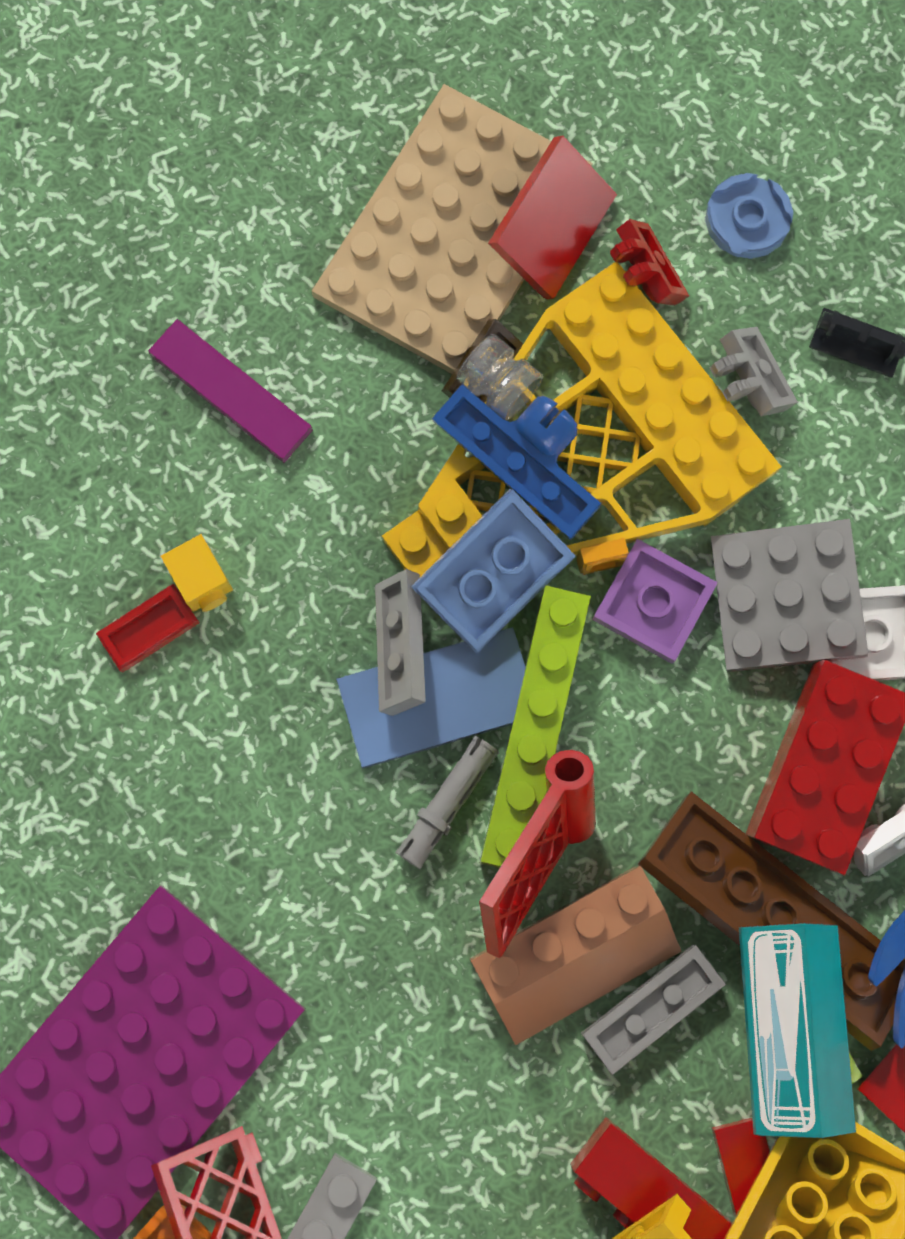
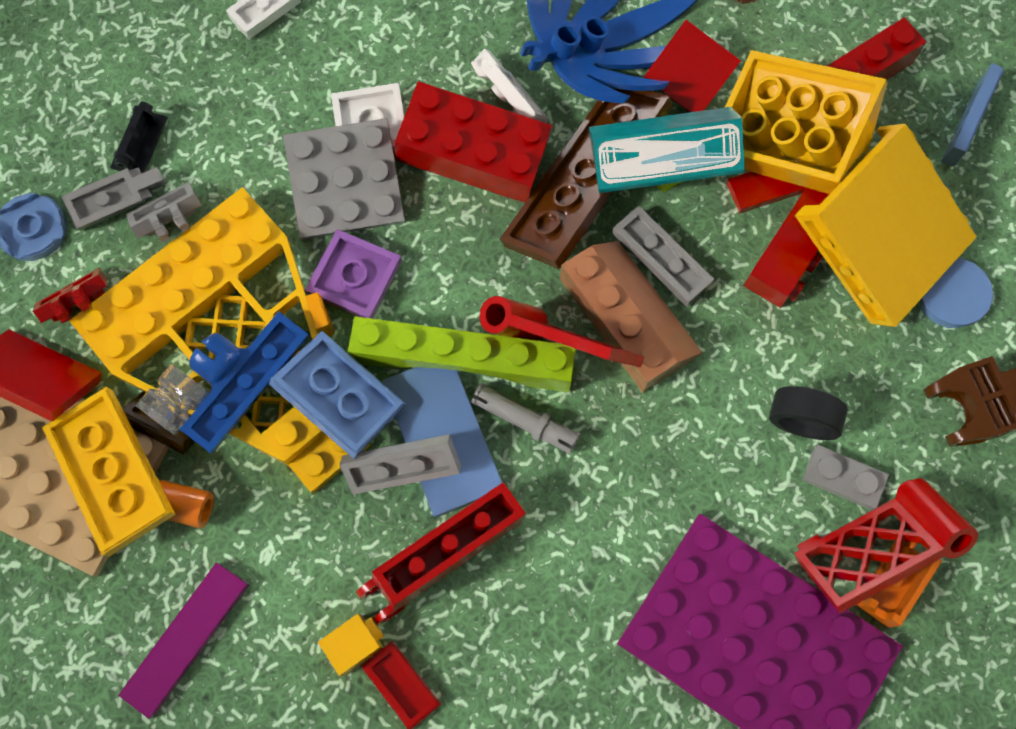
camera: 90 degrees left, 5 degrees down
(289, 688) = (443, 550): none -> red hinge
(385, 381) = (189, 504): none -> orange piece
(412, 1172) = (808, 413): none -> black tyre
(425, 305) = (108, 472): none -> yellow tile
(782, 309) = (111, 196): none -> light grey hinge

